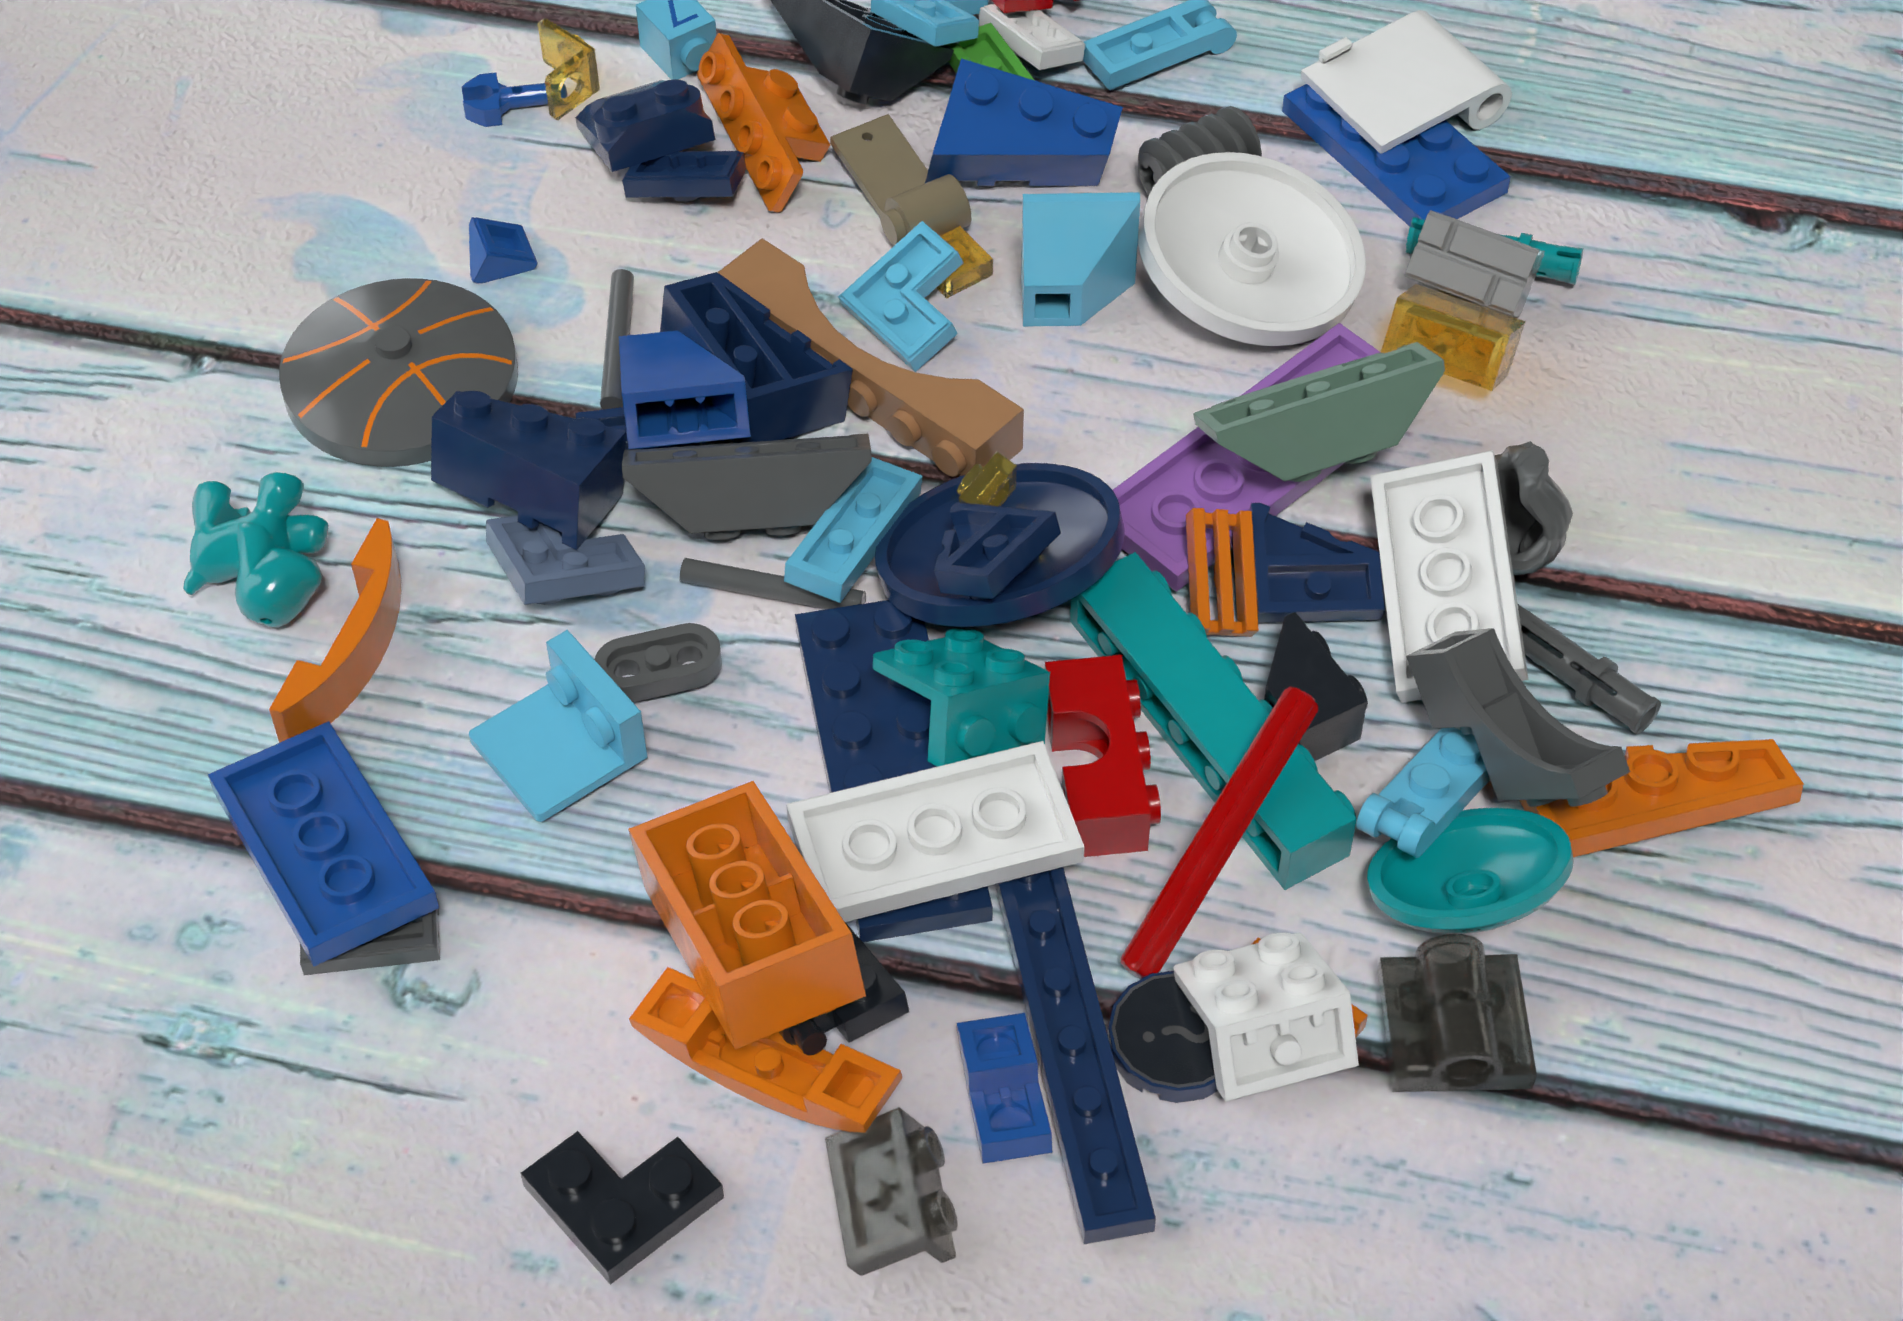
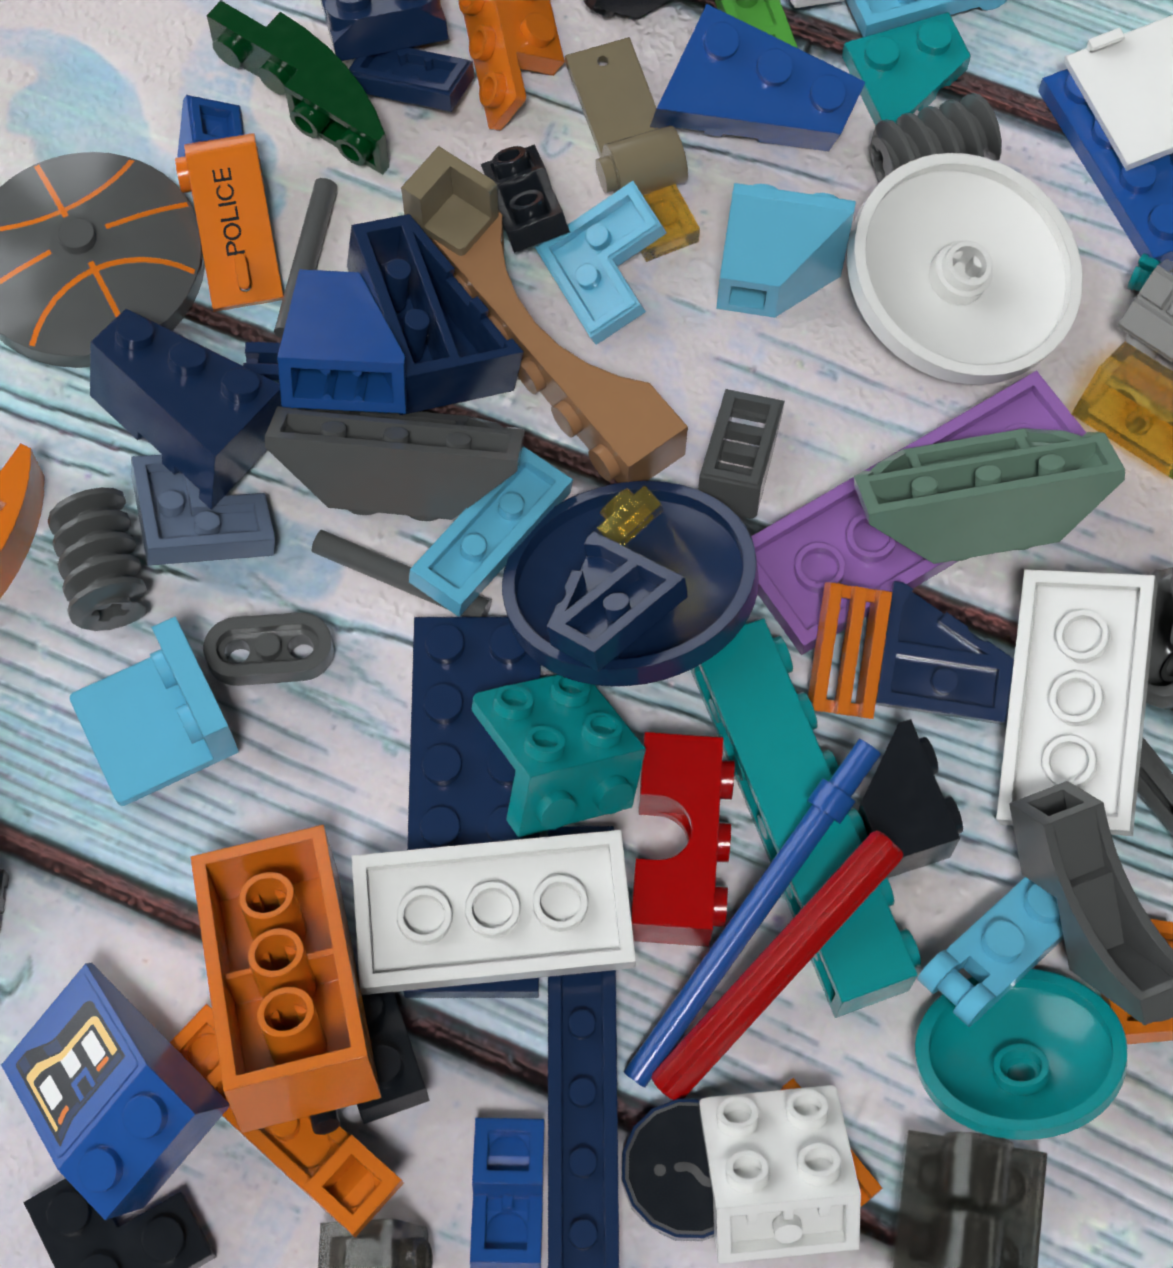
camera: 10 degrees right, 15 degrees up
(473, 610) = (97, 559): none -> dark grey piece
(540, 315) = (232, 220): none -> orange door
(591, 1055) = (110, 1095): none -> blue slope
(599, 193) = (318, 86): none -> dark green slope
(756, 252) = (451, 201): none -> dark tan panel
(820, 249) = (525, 197): none -> black slope
(1077, 437) = (735, 485): none -> dark grey slope
(1157, 101) = (907, 65): none -> teal wing
(1235, 684) = (829, 803): none -> blue bar

